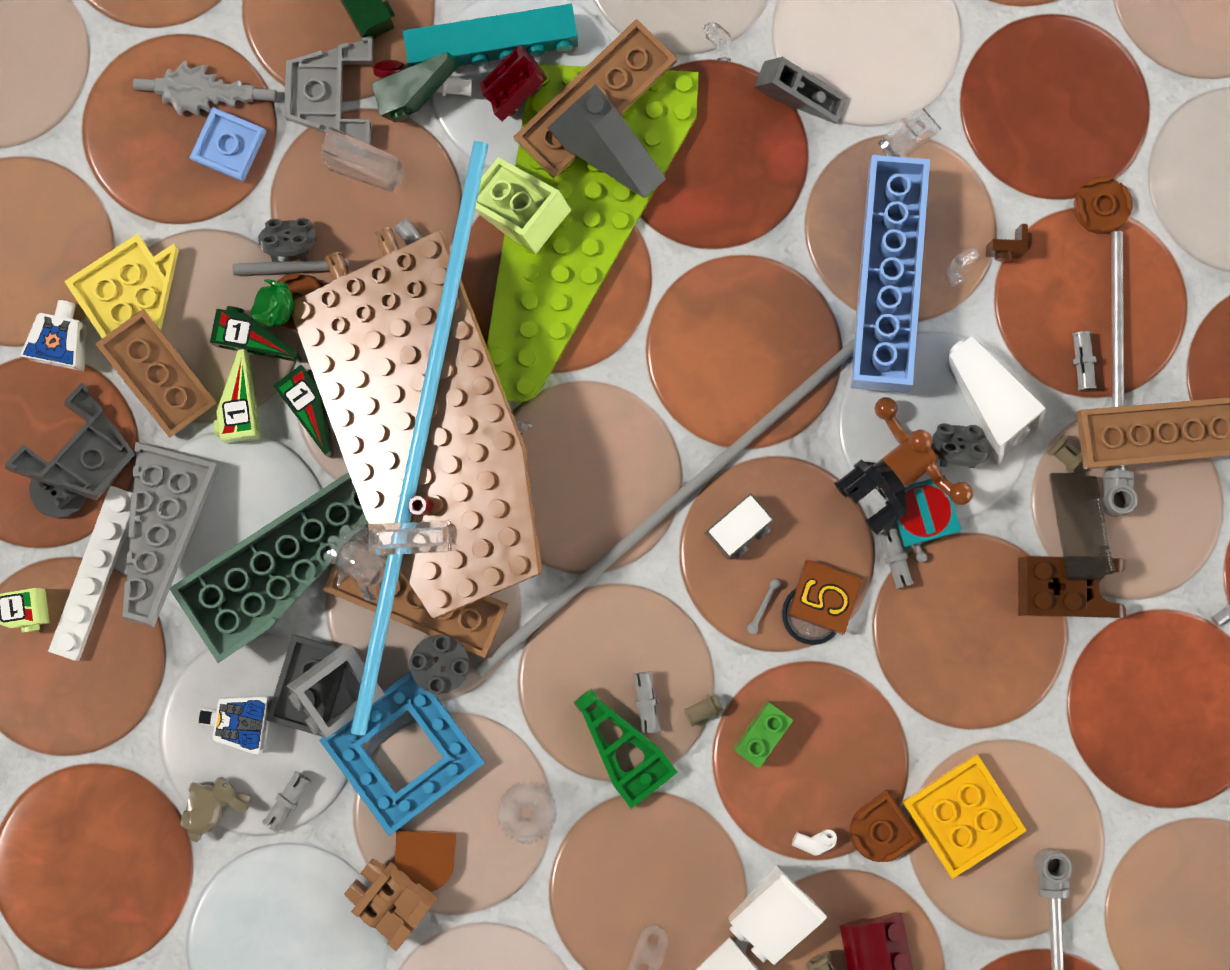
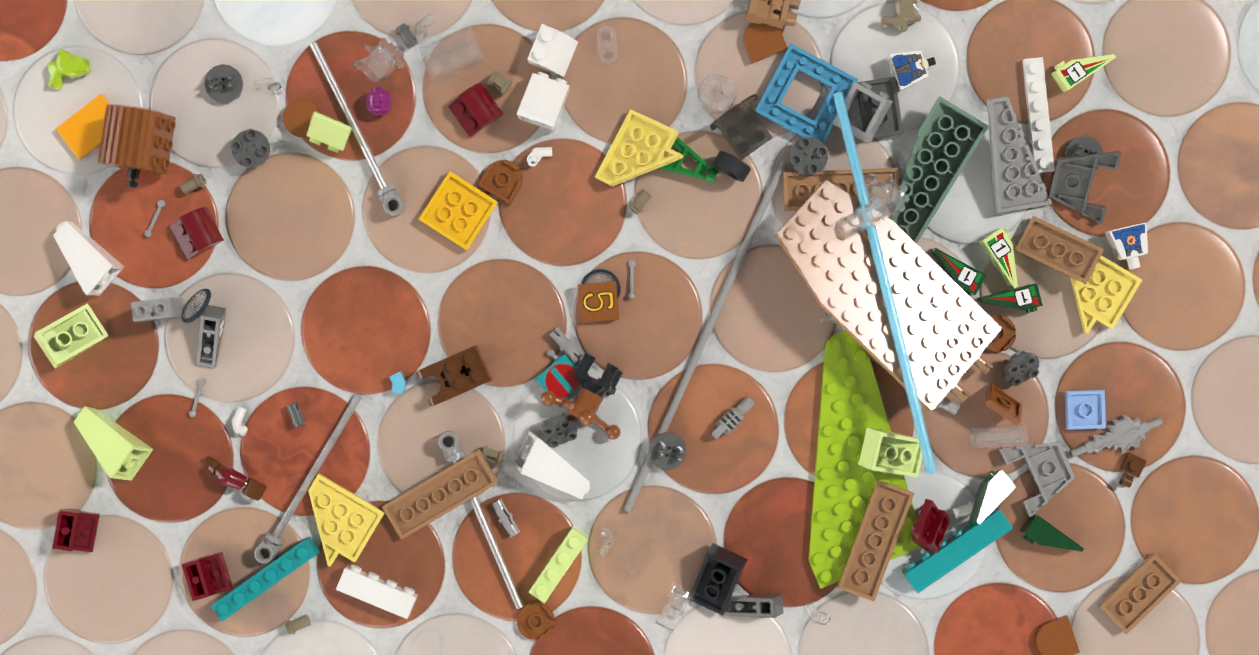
camera: 160 degrees right, 5 degrees up
(202, 41) = (1132, 466): none -> reddish brown plate
(273, 304) = (1010, 323): green hair -> none
(282, 267) = (1015, 350): light grey bar -> none
(286, 801) = (860, 35): light grey pin -> none
(335, 199) = (1003, 404): none -> dark orange tile
(387, 67) = (1010, 502): dark red piece -> none
(414, 505) = (868, 240): dark red piece -> none
(512, 746) = (742, 128): none -> clear smoke piece
(553, 700) = (731, 166): none -> black tyre
(603, 139) = (860, 515): dark grey wedge -> none
(646, 702) = (675, 191): light grey pin -> none
(674, 784) = (638, 149): none -> light yellow wing
(711, 352) = (732, 418): none -> light grey hinge
(739, 527) = (668, 319): white brick -> none
(762, 734) = (599, 203): bright green brick -> none
(831, 146) = (717, 579): none -> black slope
(832, 357) = (658, 449): none -> dark grey plate
(890, 274) = (648, 514): light blue brick -> none
(1006, 249) = (583, 563): reddish brown bracket -> none
(1040, 264) = (558, 564): none -> yellowish green brick
(1080, 527) = (469, 418): clear smoke windscreen -> none
(1152, 612) = (399, 383): none -> medium azure piece

